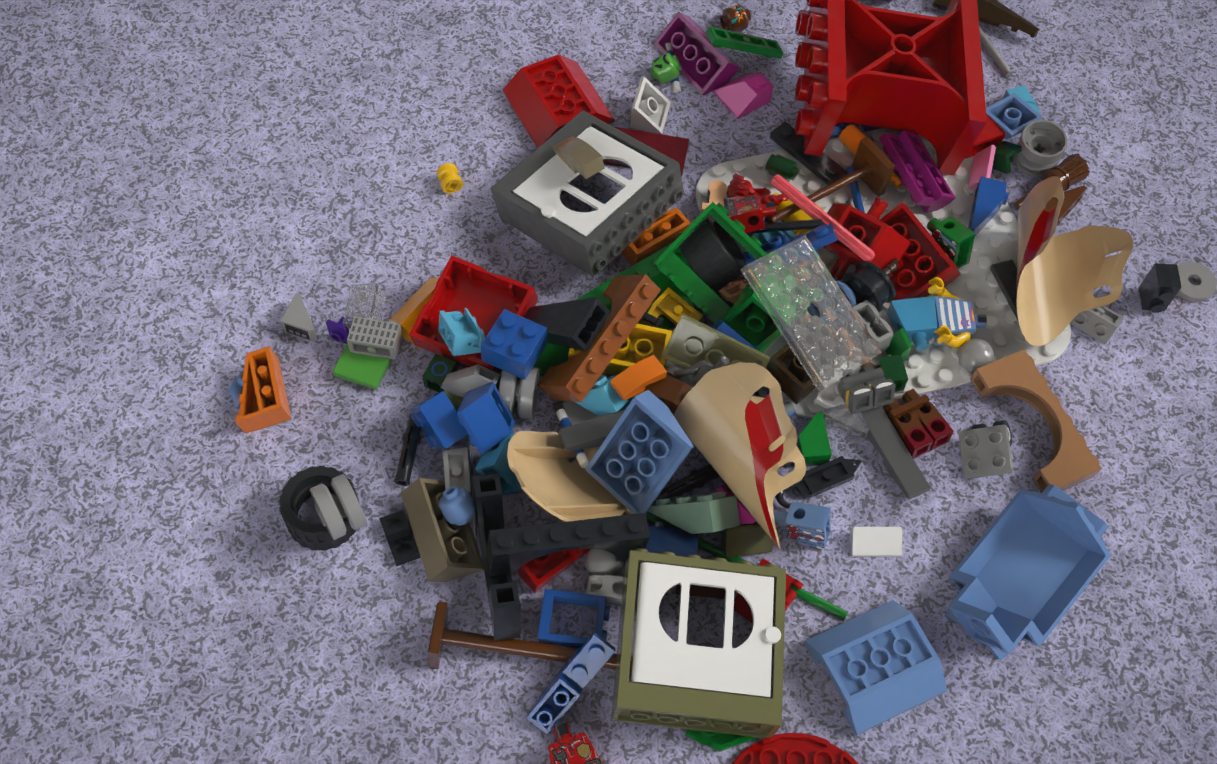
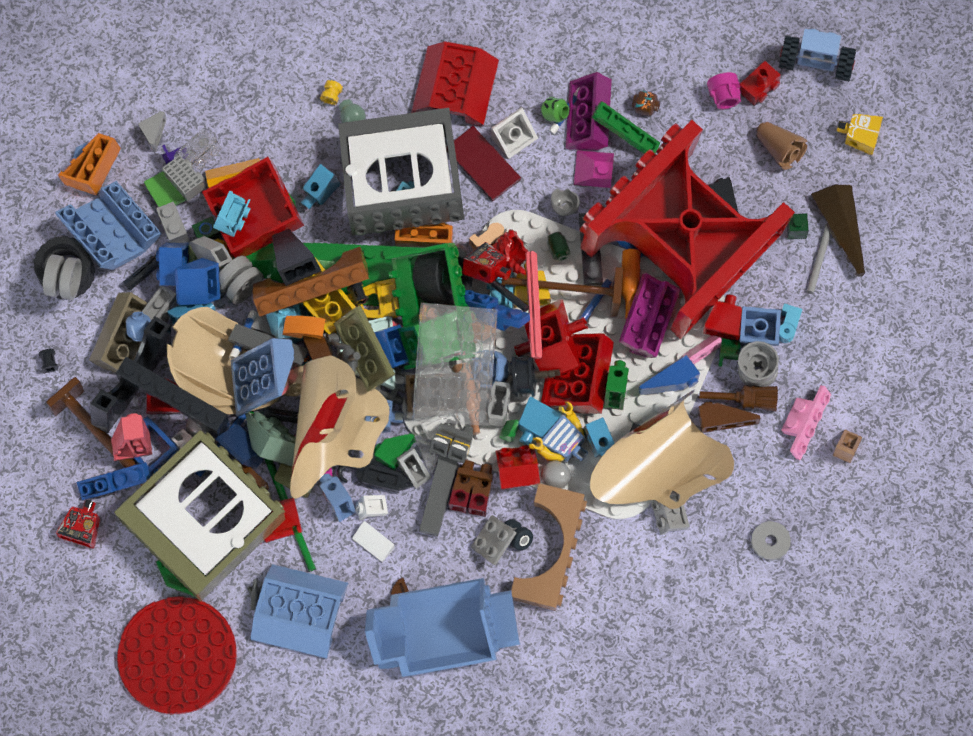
camera: 45 degrees right, 10 degrees up
(337, 432) = (110, 227): none -> medium blue slope
(382, 615) = (48, 360): none -> black bush
(398, 389) = (172, 223): none -> light grey brick
(399, 538) = (97, 319): black slope -> none
(483, 181) = (351, 111): none -> sand green piece
(514, 344) = (249, 248): blue brick -> none
(518, 256) = (319, 187): none -> dark azure torso
(559, 617) = (131, 438): none -> coral wedge
(579, 156) = (404, 143): dark tan slope -> none
(748, 133) = (566, 196): none -> light grey hair
(817, 686) = (255, 593): none -> dark grey bar
(843, 510) = (371, 506): none -> white bracket
(846, 443) = (413, 468): none -> light grey slope
(893, 369) = (484, 444): dark green brick -> none
(940, 371) = (517, 467): none -> red slope
(944, 568) = (399, 587): none -> reddish brown tile
(986, 294) = (598, 432): none -> dark azure torso
(1111, 170) = (804, 419): none -> bright pink bracket
(1159, 287) = (730, 525): black brick -> none
(1168, 166) = (847, 446): none -> medium nougat slope

